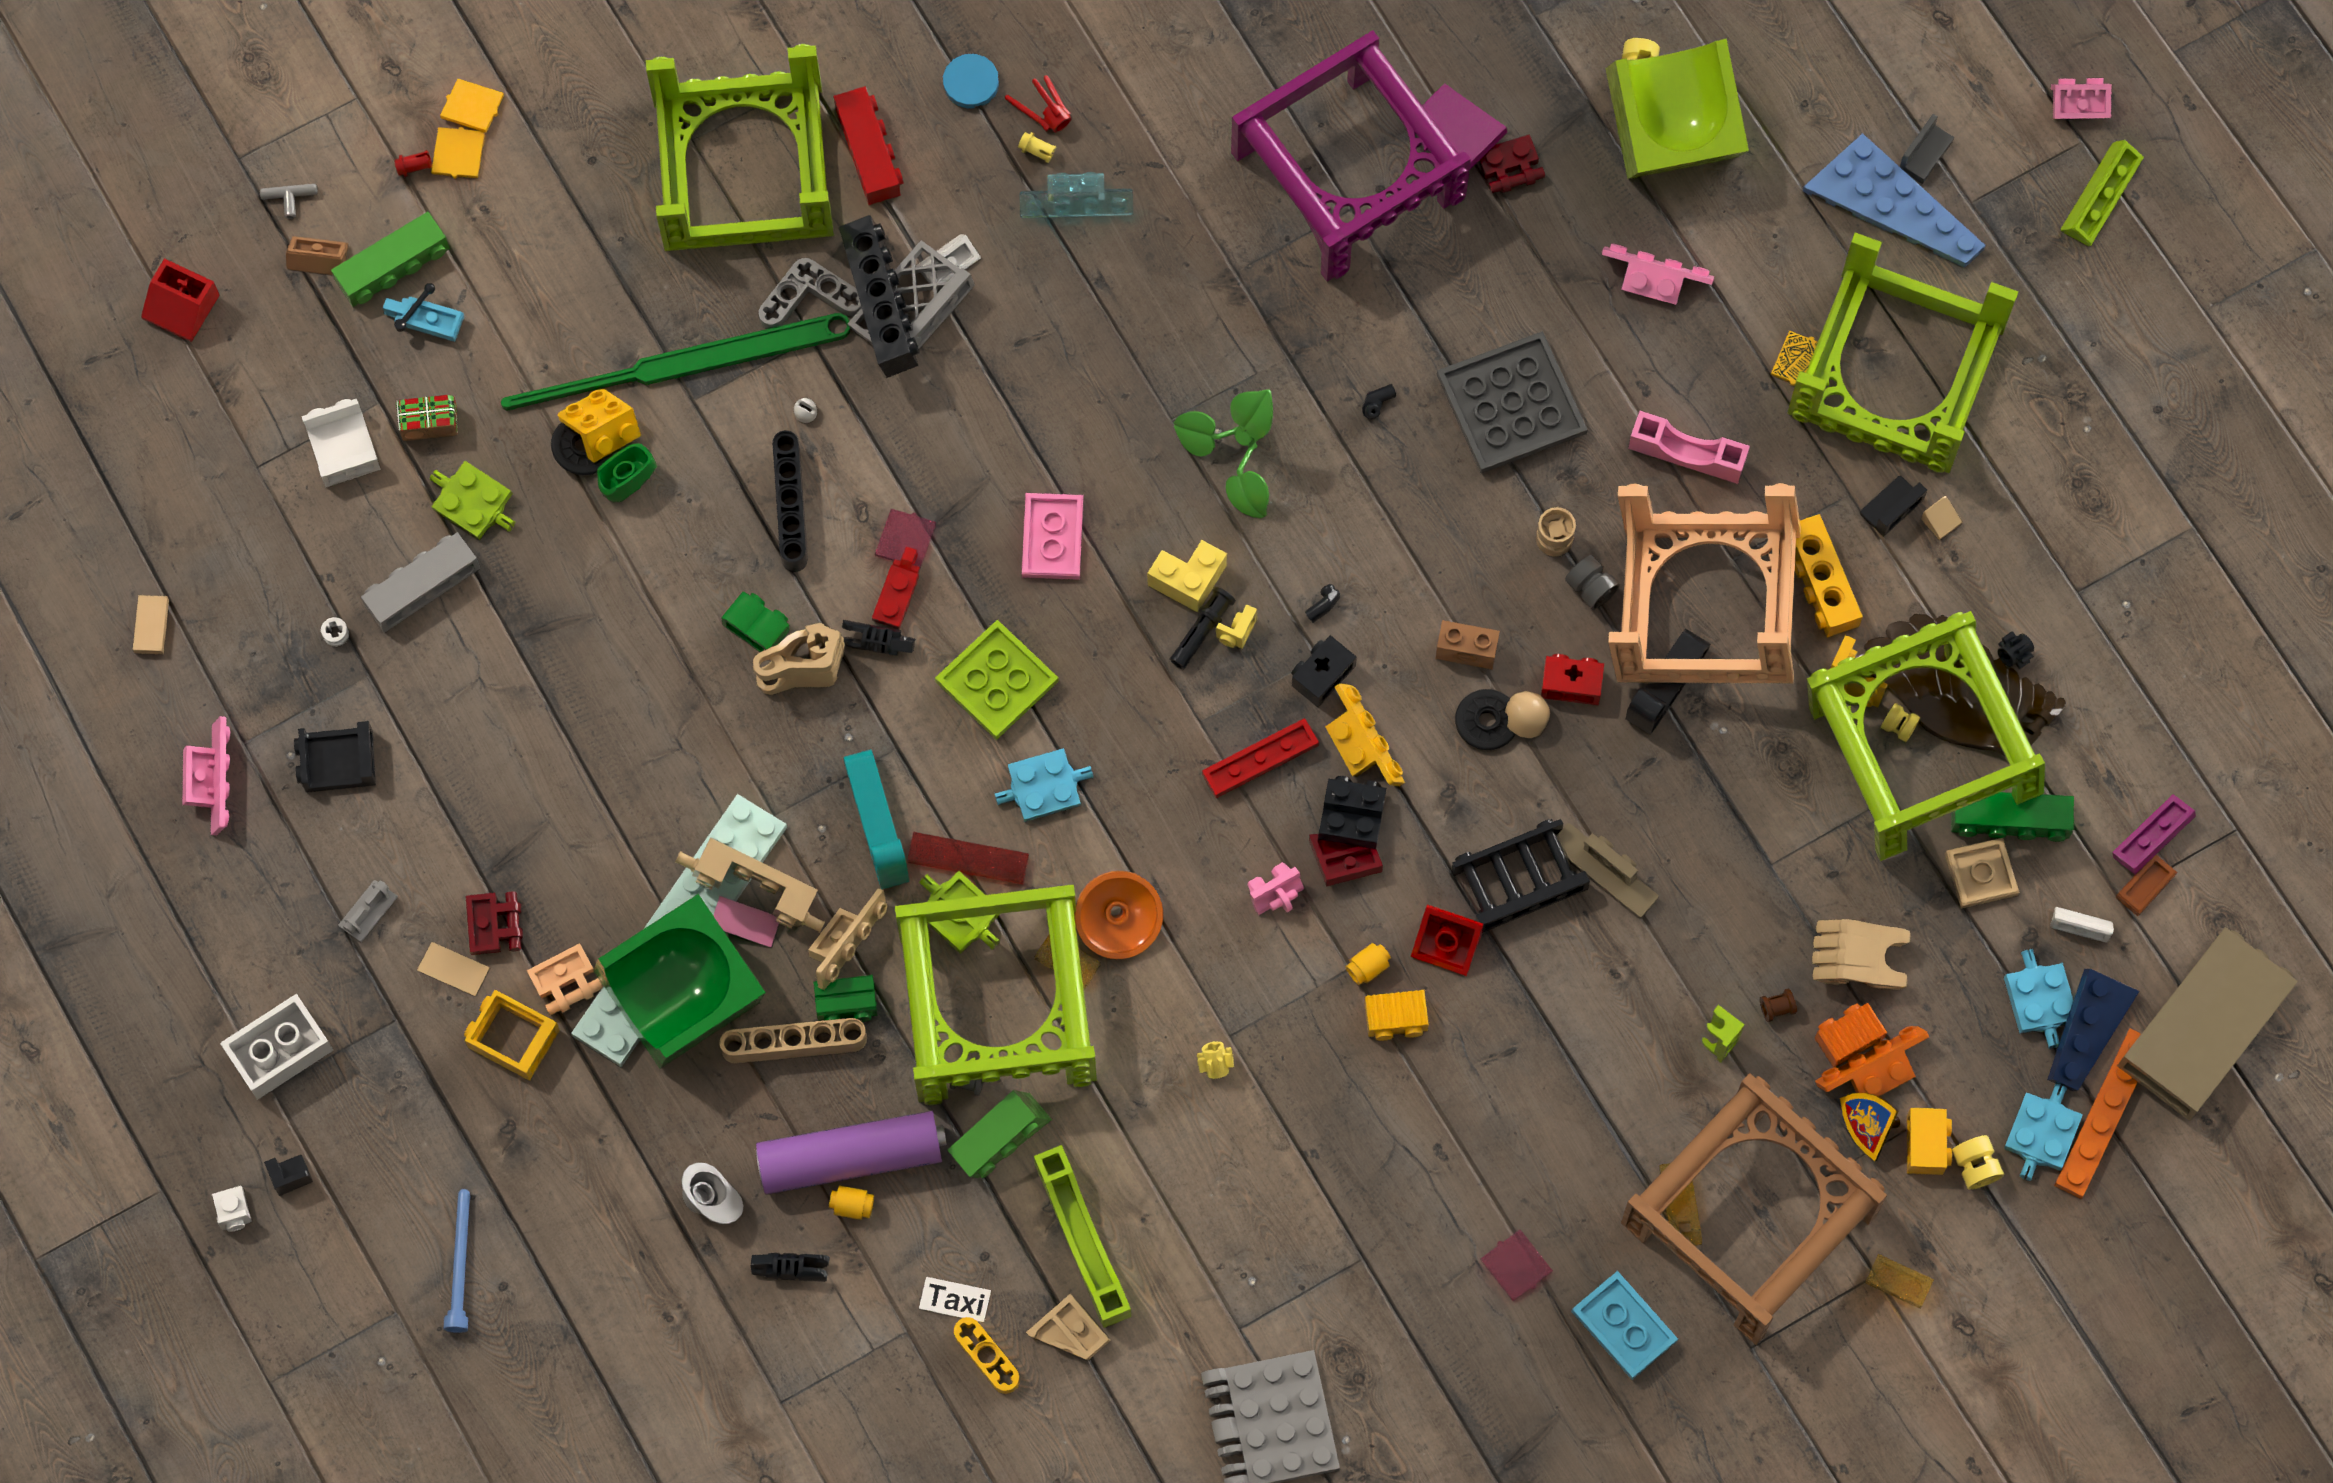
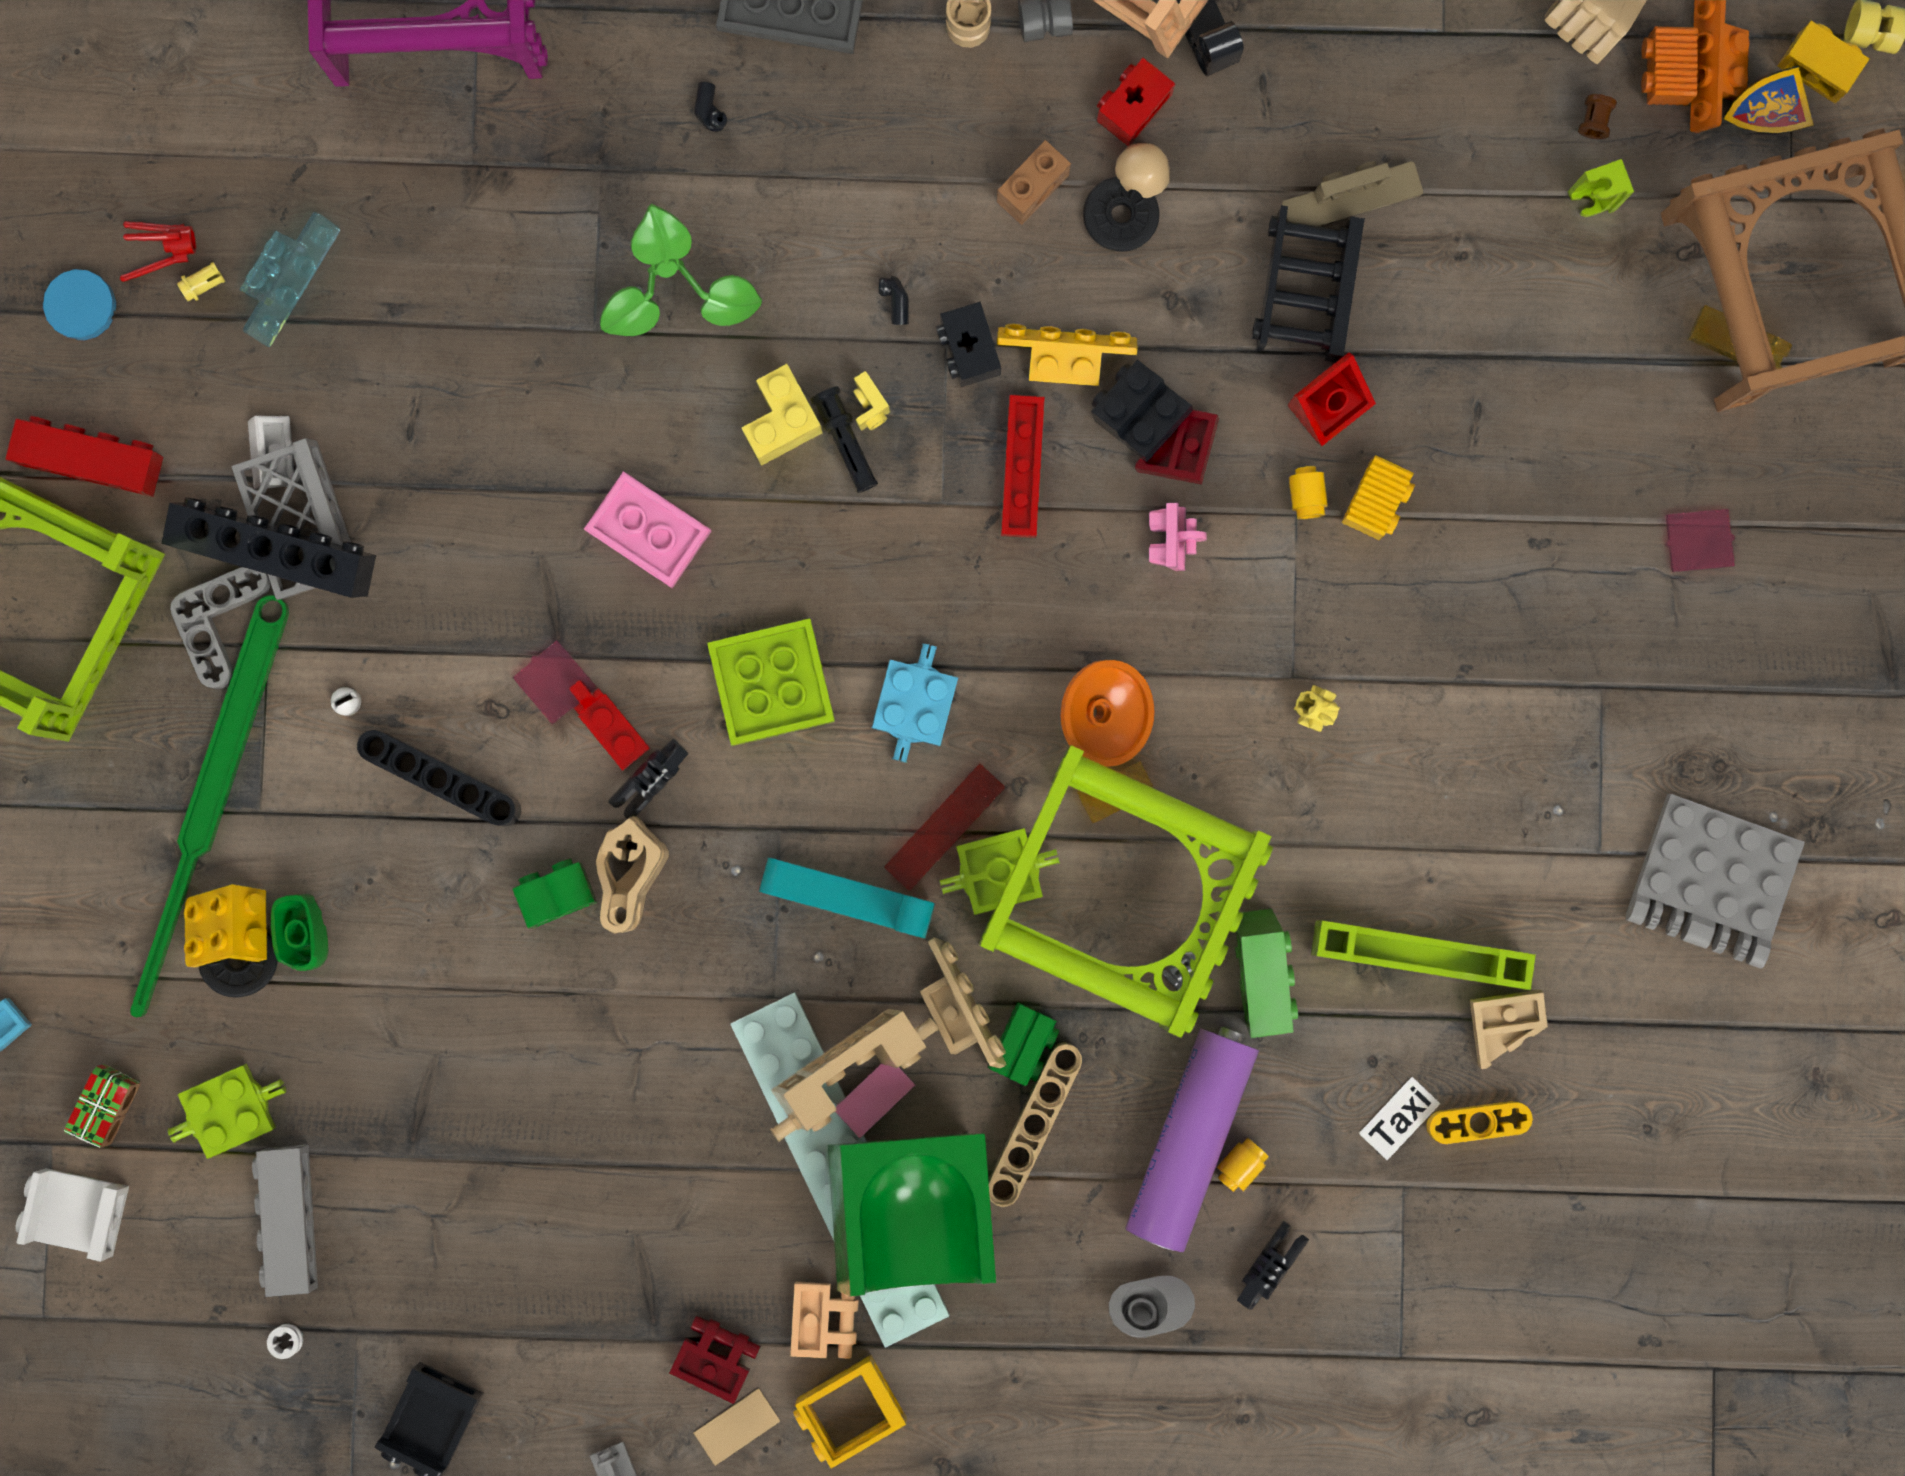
camera: 60 degrees left, 15 degrees up
(1624, 1325) = (1828, 473): medium azure plate -> none

